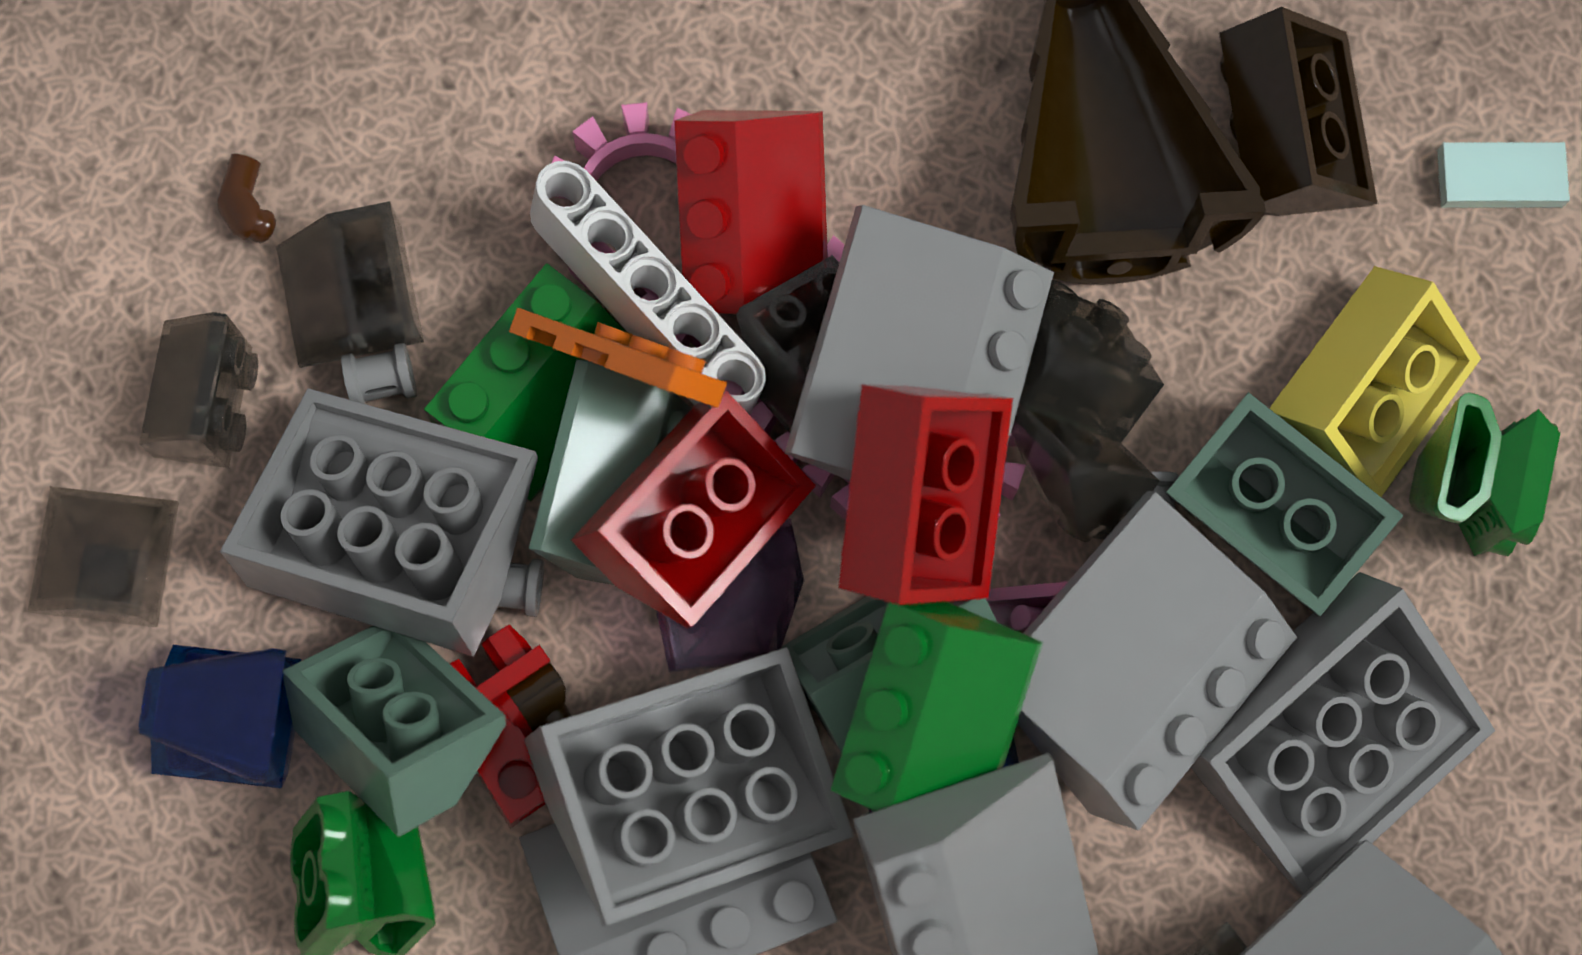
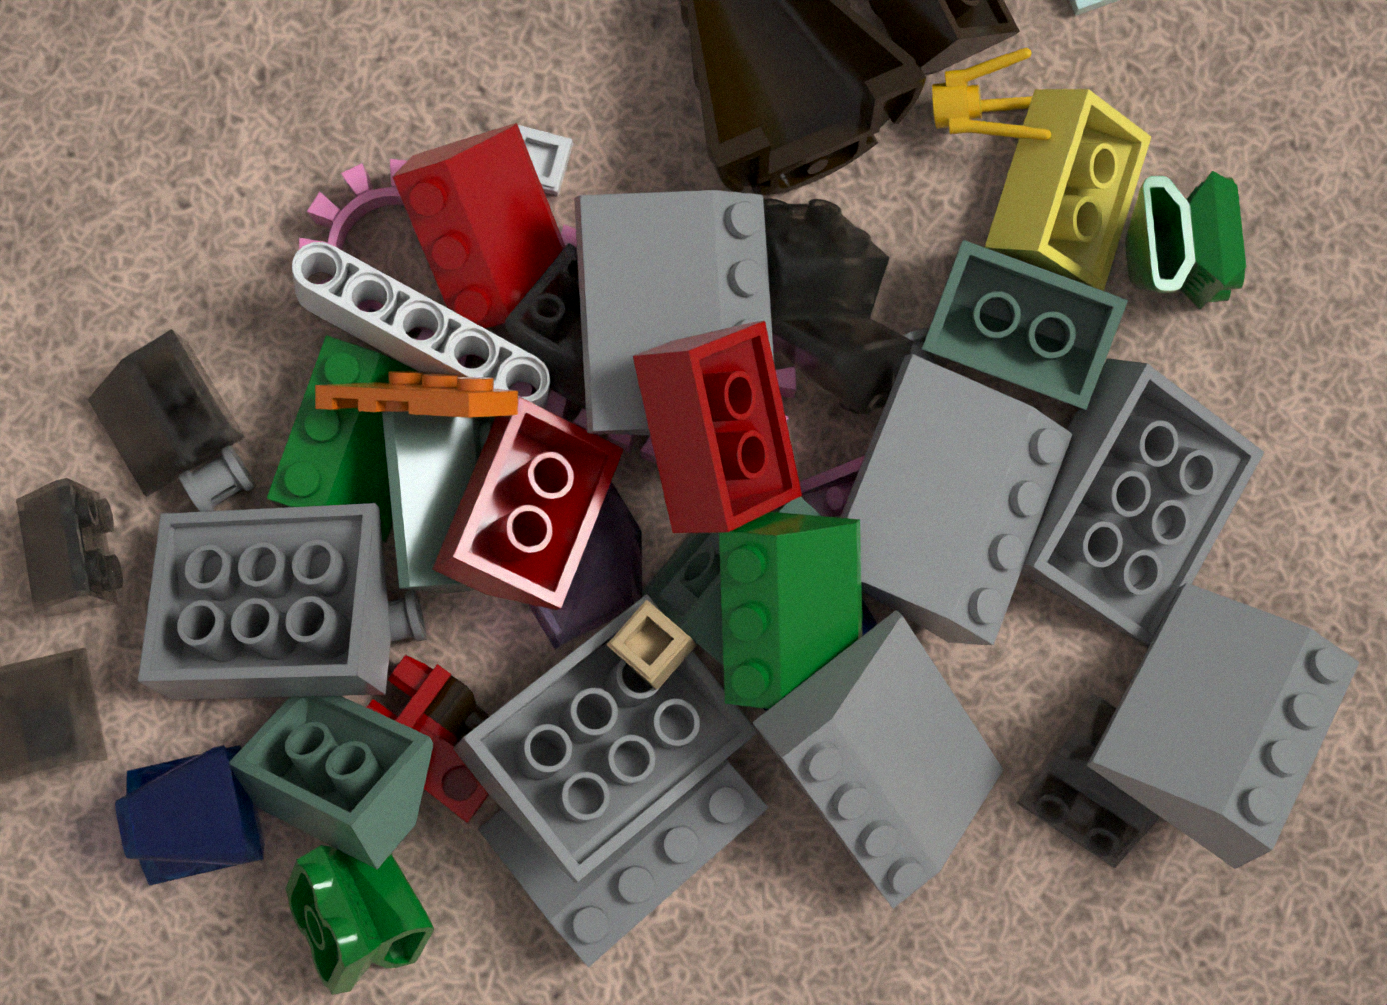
camera: 10 degrees left, 5 degrees up
(238, 204) = (41, 373): reddish brown arm -> none
(774, 701) = (652, 644): none -> tan slope
(843, 164) = (549, 156): none -> white tile
(1290, 256) = (959, 104): none -> yellow plant

